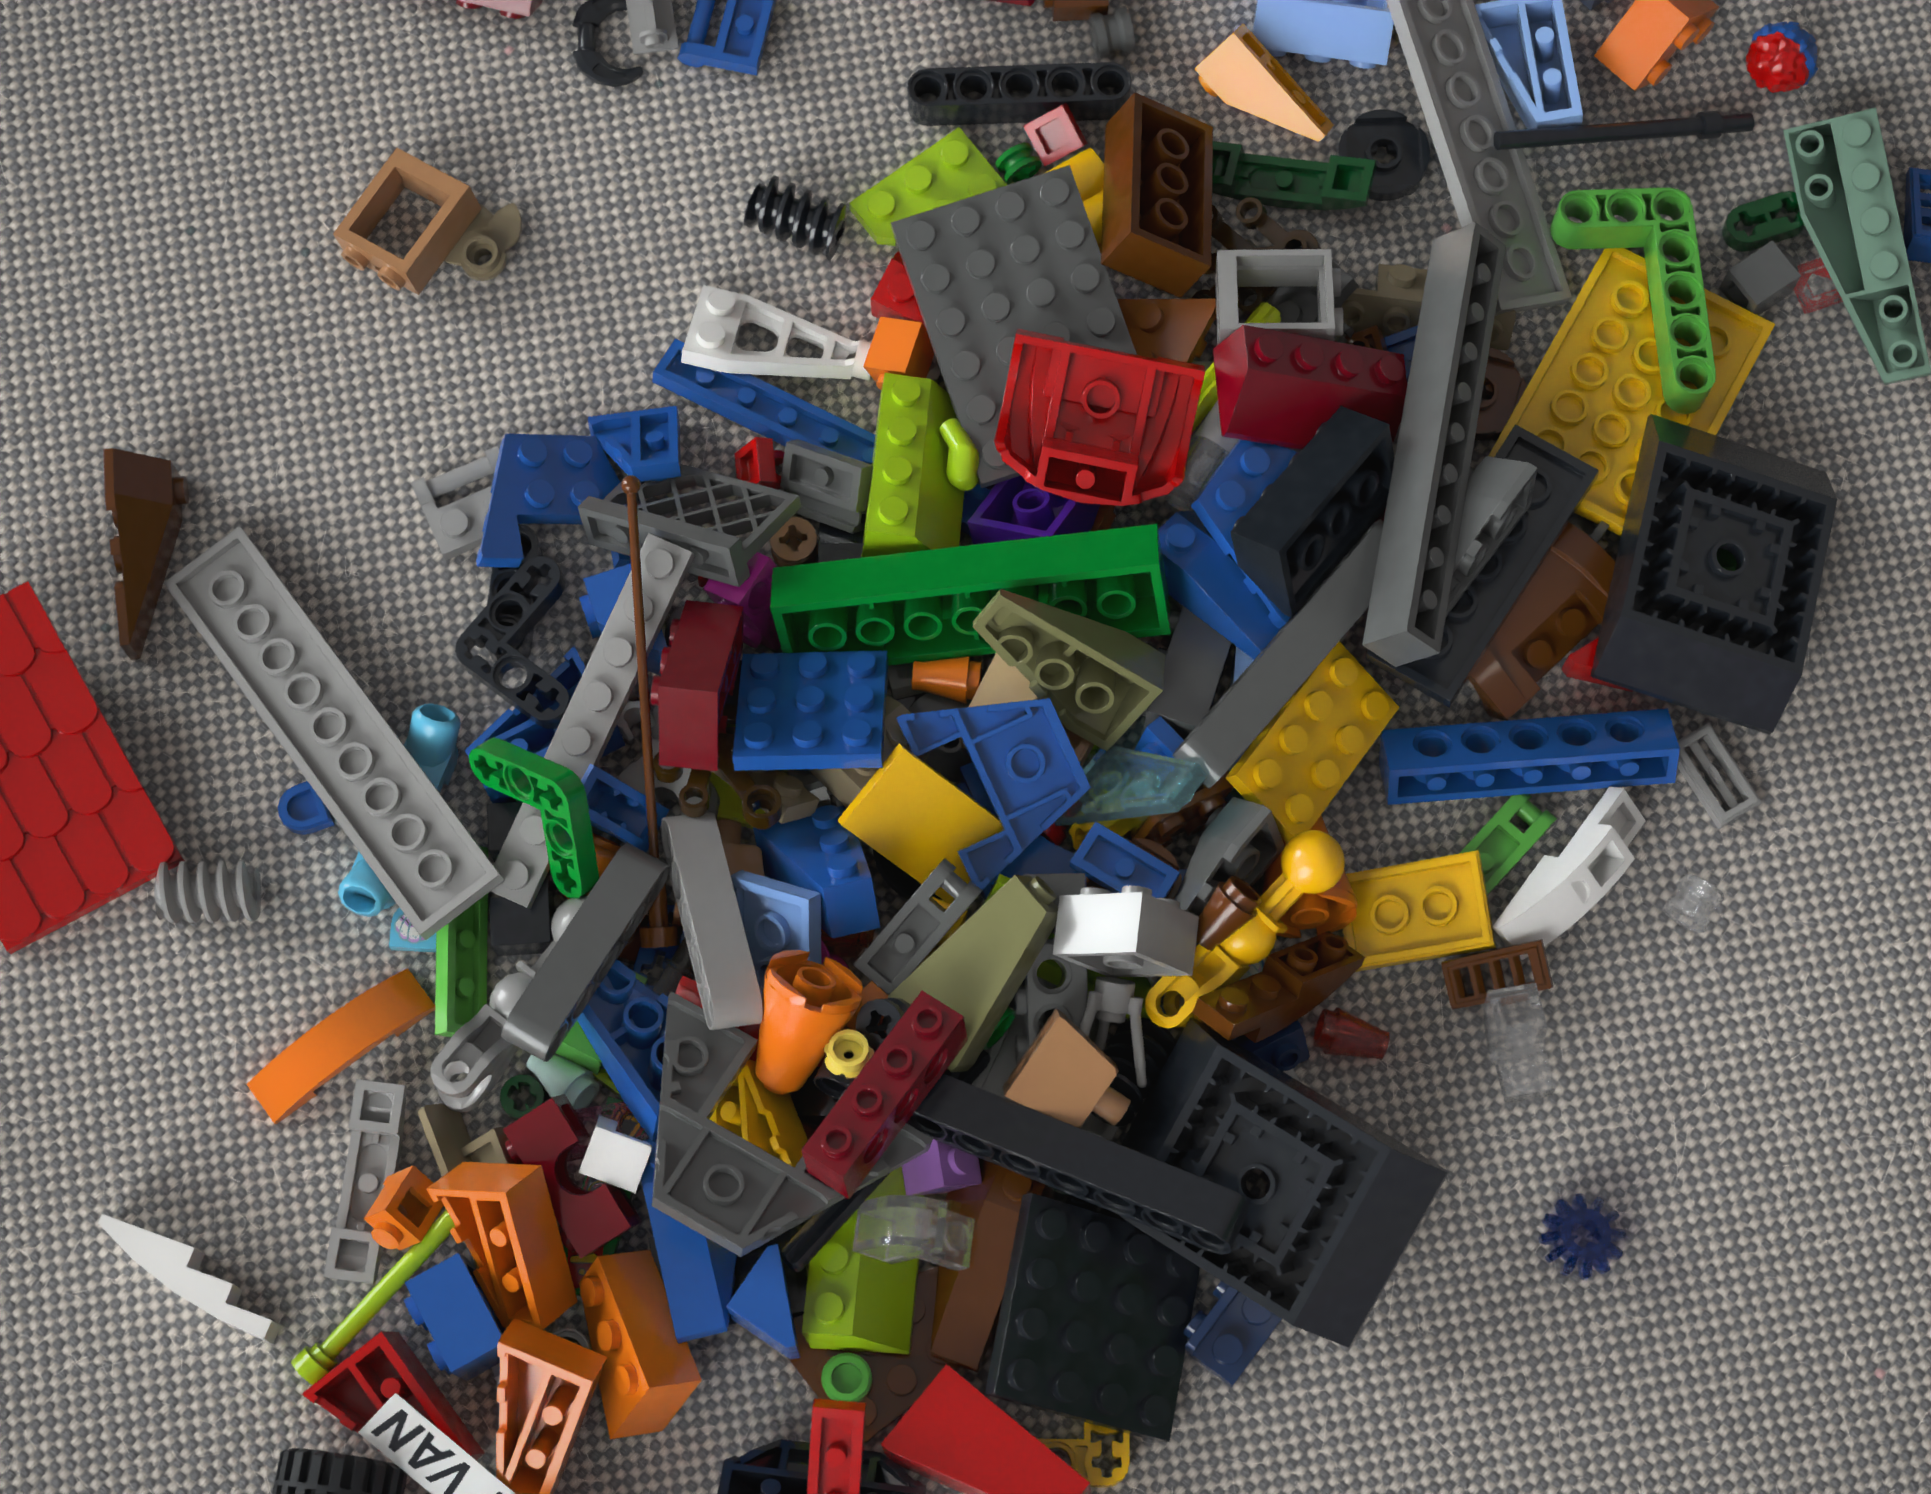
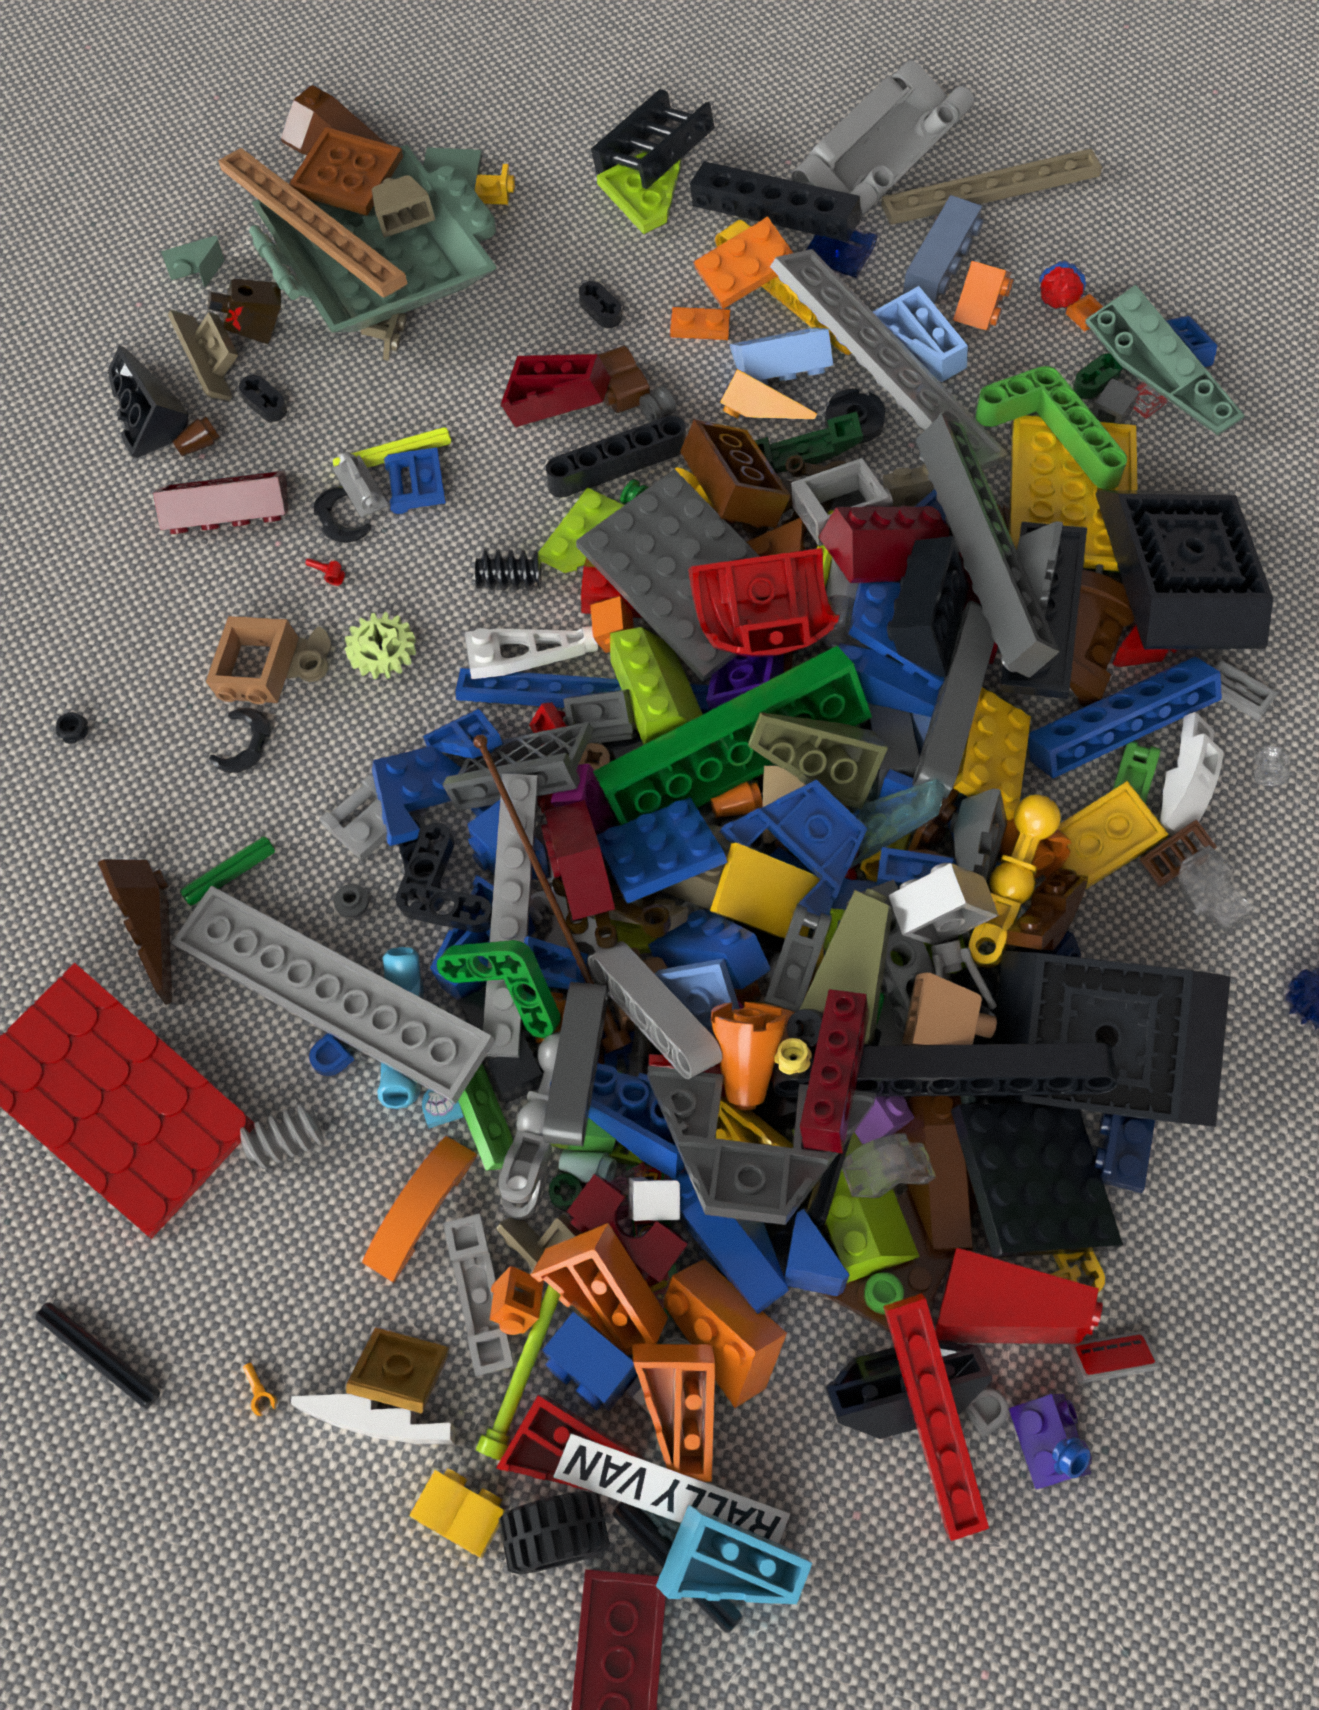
camera: 20 degrees left, 10 degrees down
(70, 1189) = (258, 1389): none -> light orange hand
(138, 218) = (69, 721): none -> black plate
(236, 1232) = (397, 1370): none -> pearl gold plate
(243, 1424) = (458, 1512): none -> yellow brick
(269, 509) = (227, 870): none -> green axle
(352, 360) = (247, 758): none -> black piece
(409, 625) = (351, 909): none -> dark grey plate
(565, 126) = (332, 571): none -> red hand
(566, 253) = (396, 645): none -> yellowish green gear
(962, 455) = (684, 664): lime arm -> none
(1055, 134) = (650, 467): tile -> none
(1227, 911) = (1000, 867): reddish brown cone -> none
(1349, 1035) = (1101, 930): clear red cone -> none
(1704, 125) = (1034, 337): black bar -> none
(1804, 105) = (1082, 310): none -> orange tile

